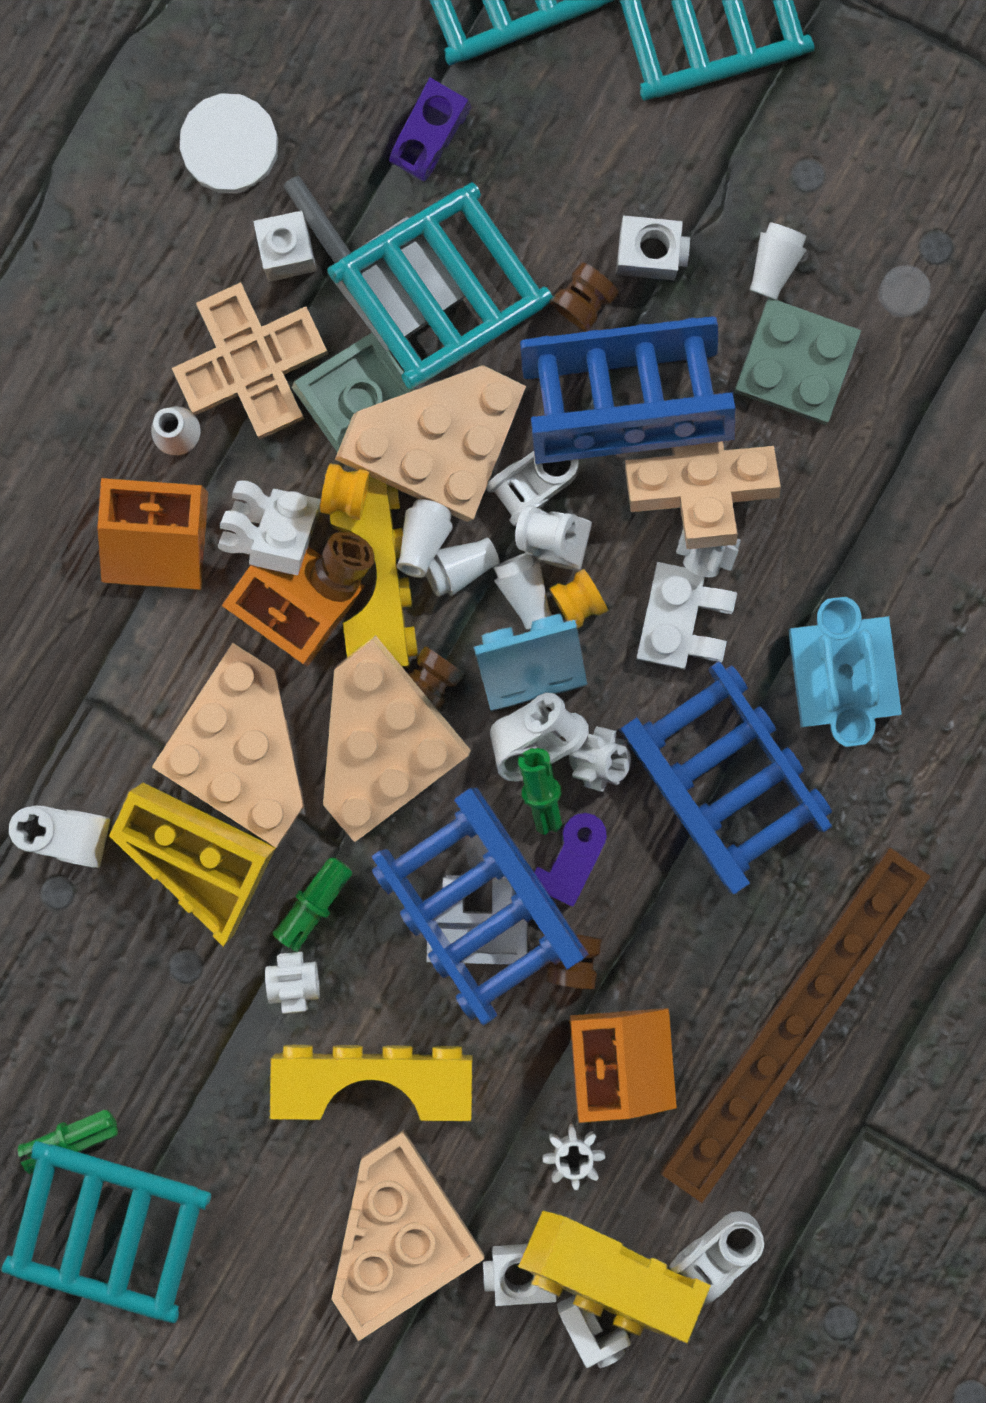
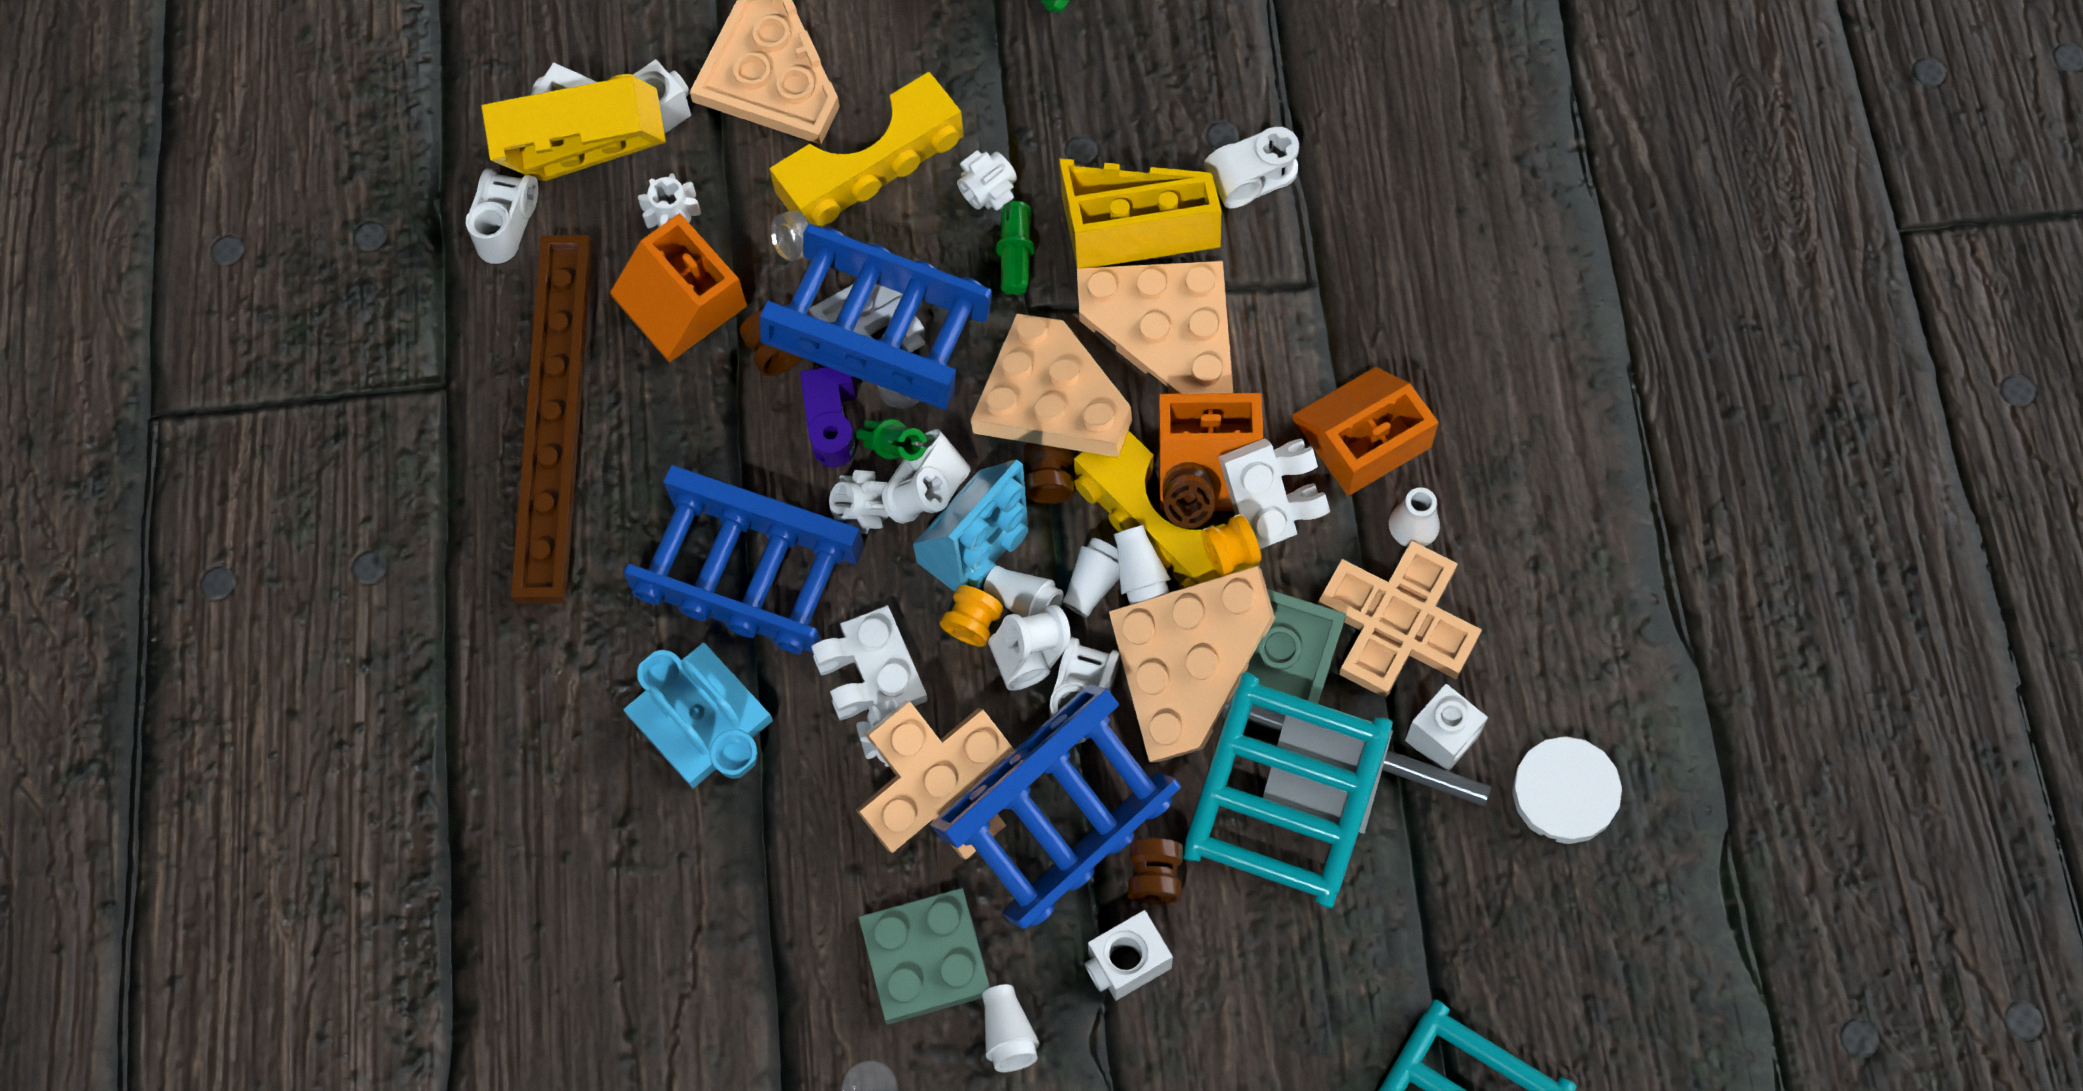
camera: 145 degrees right, 20 degrees down
(429, 129) = (1404, 924): dark purple leg -> none
(490, 1049) = (788, 234): none -> clear tile

